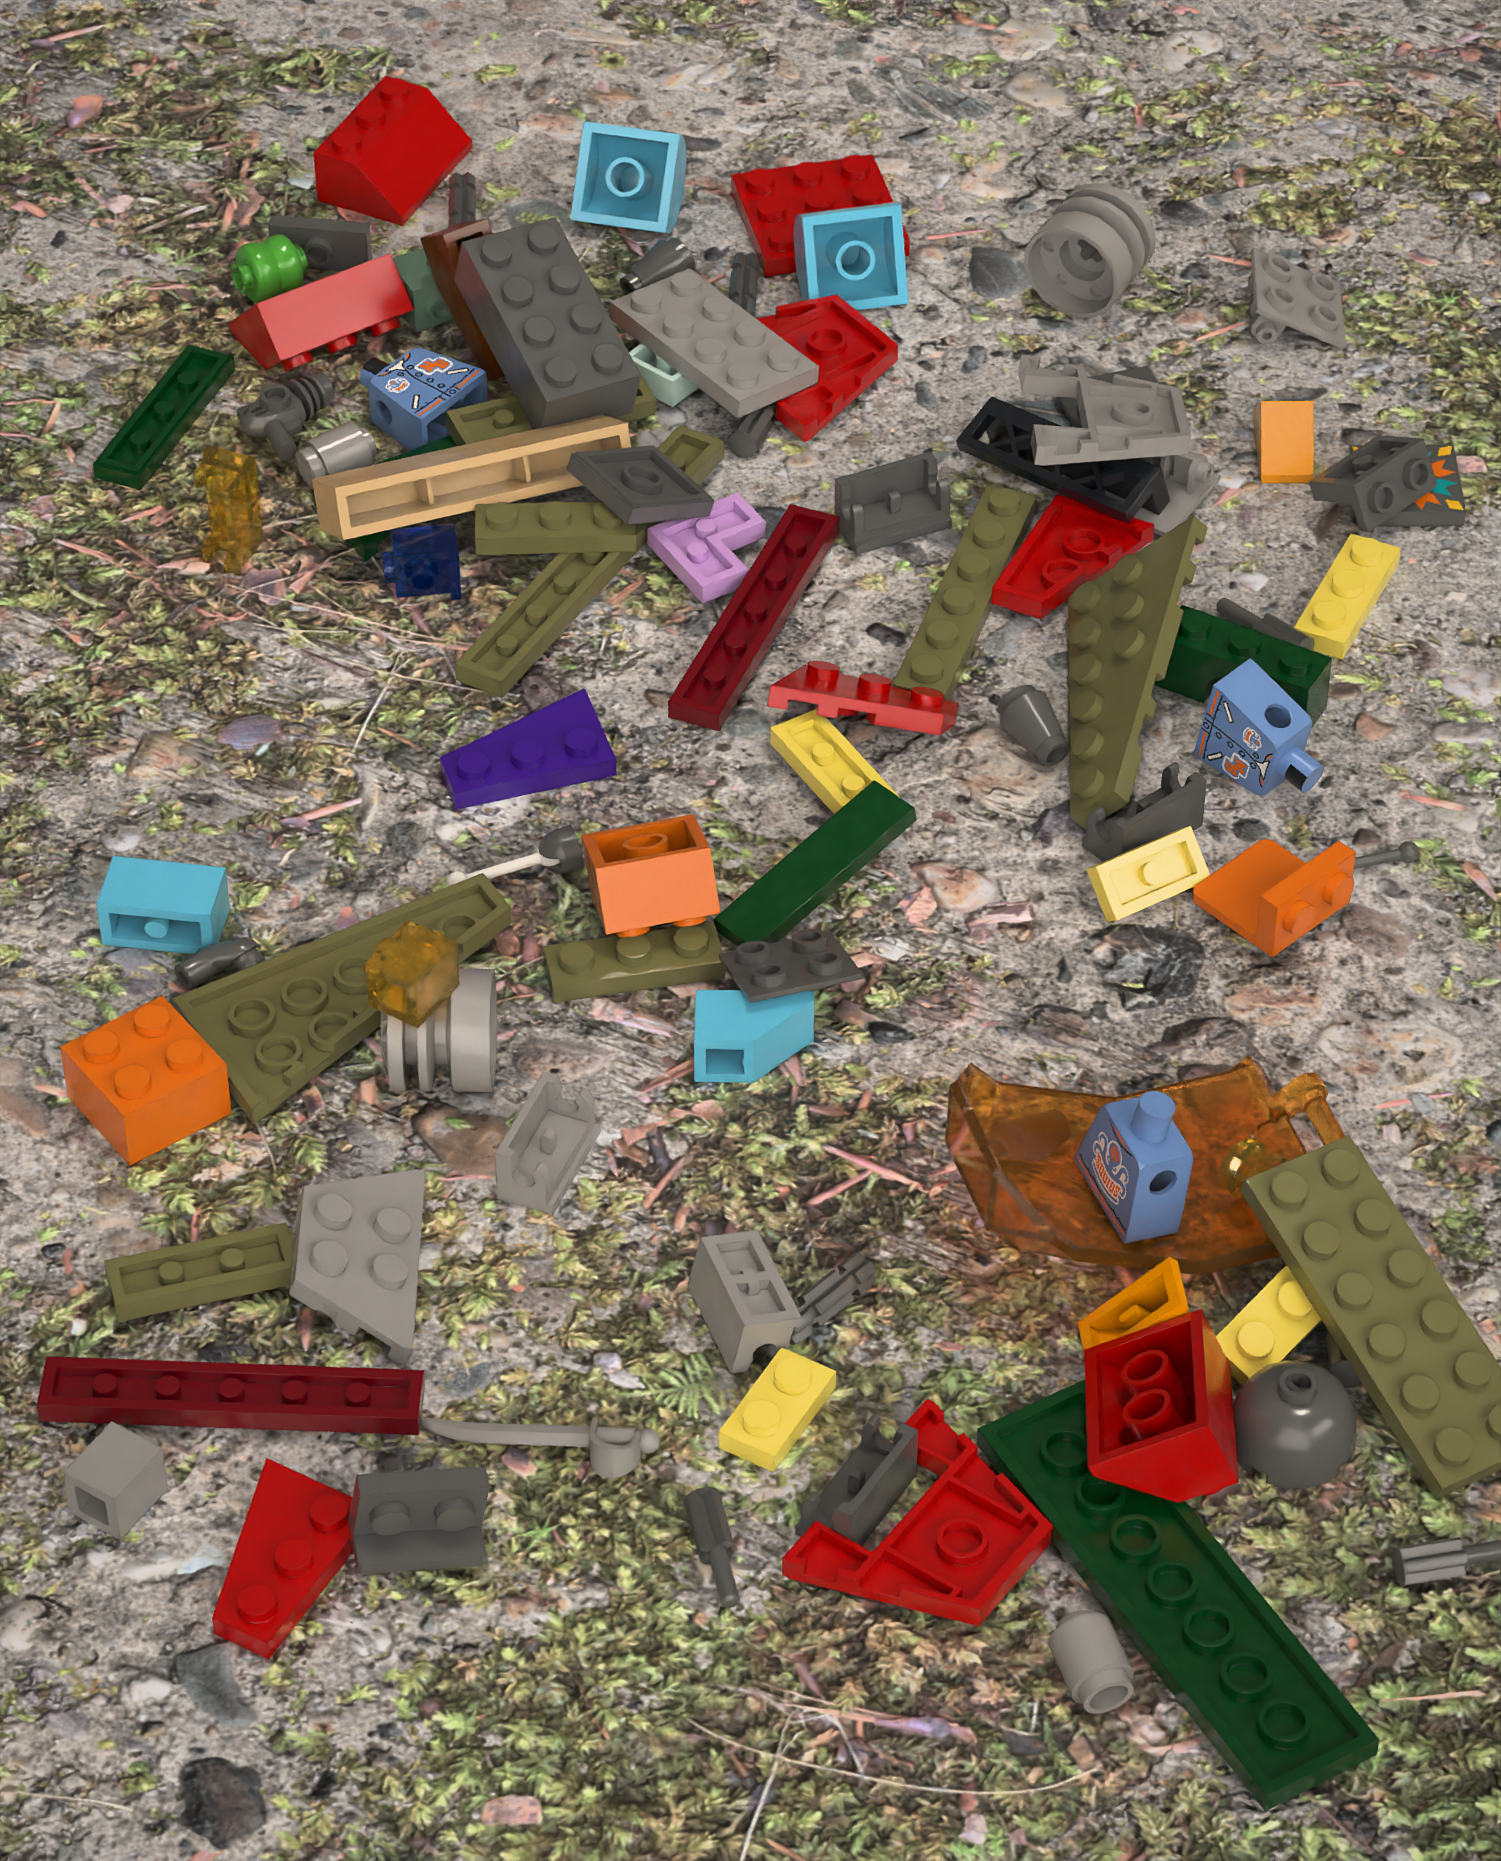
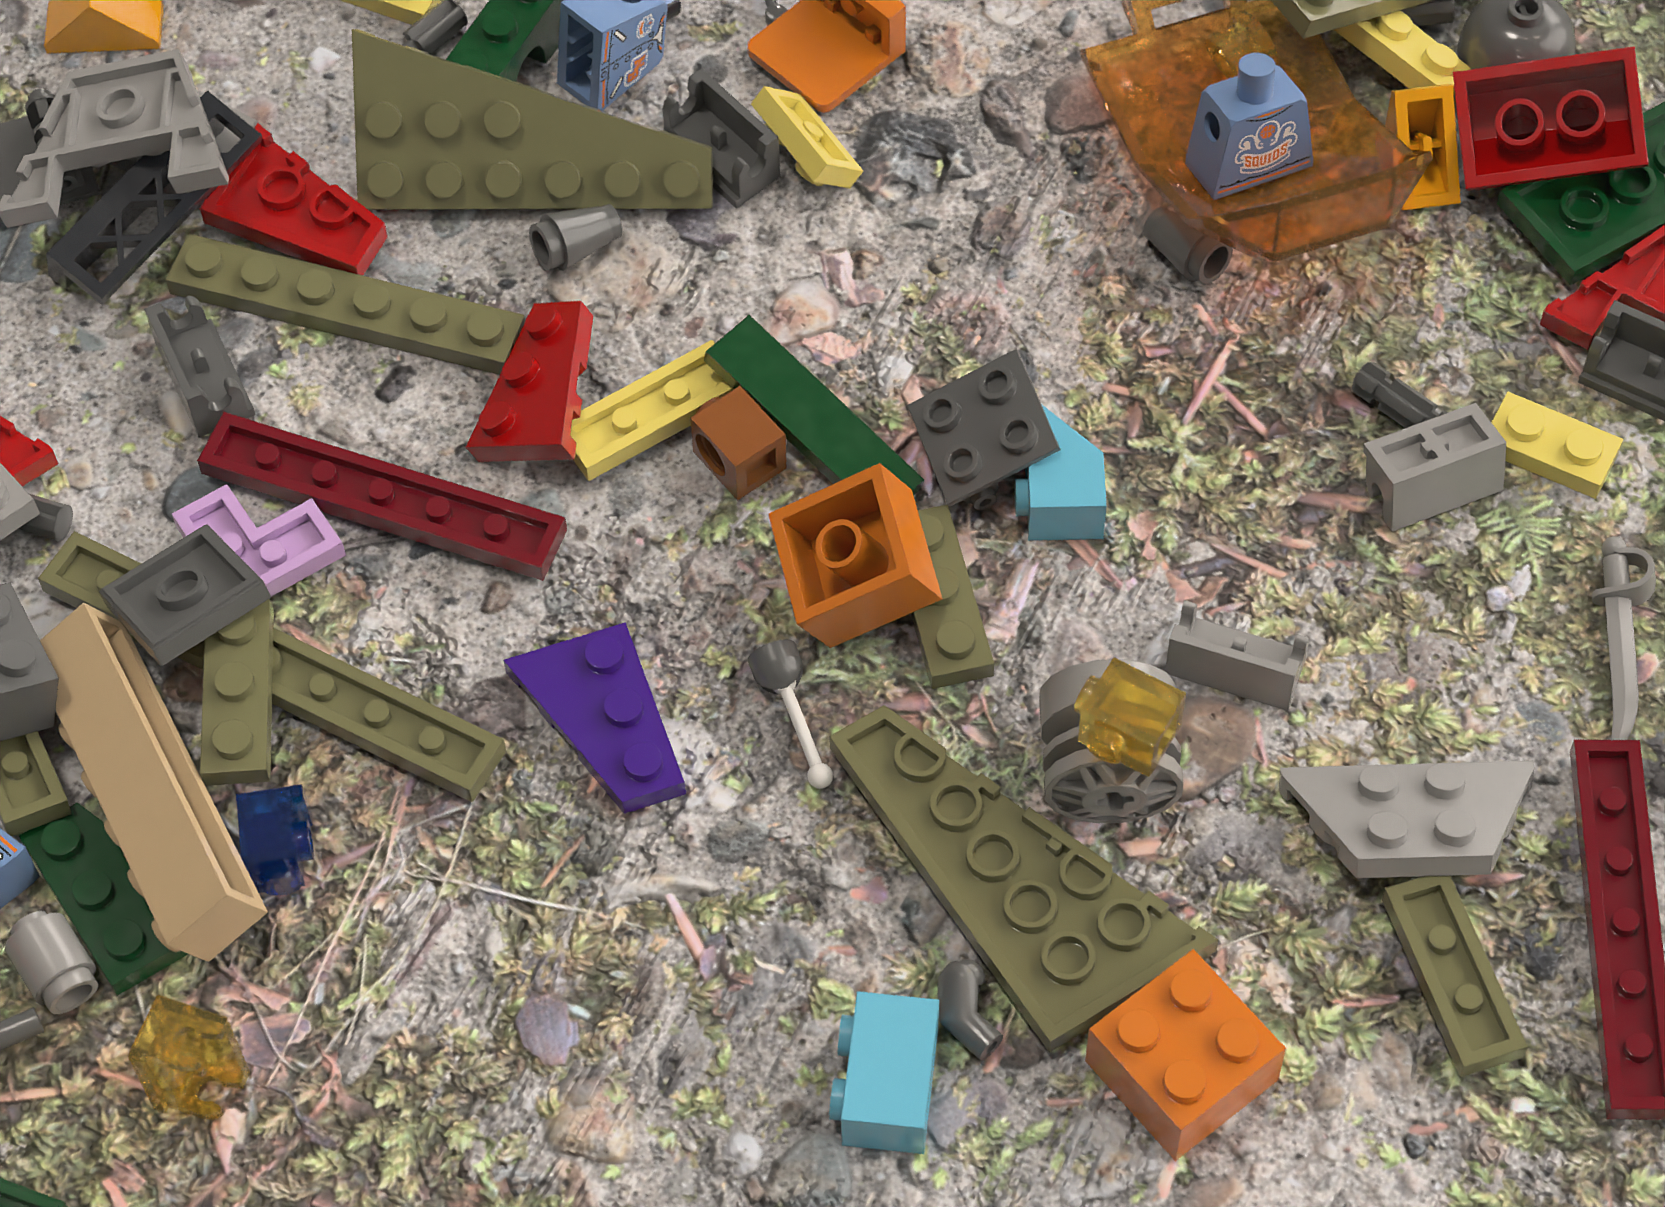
camera: 90 degrees left, 15 degrees up
(789, 817) = (738, 442): none -> dark orange brick

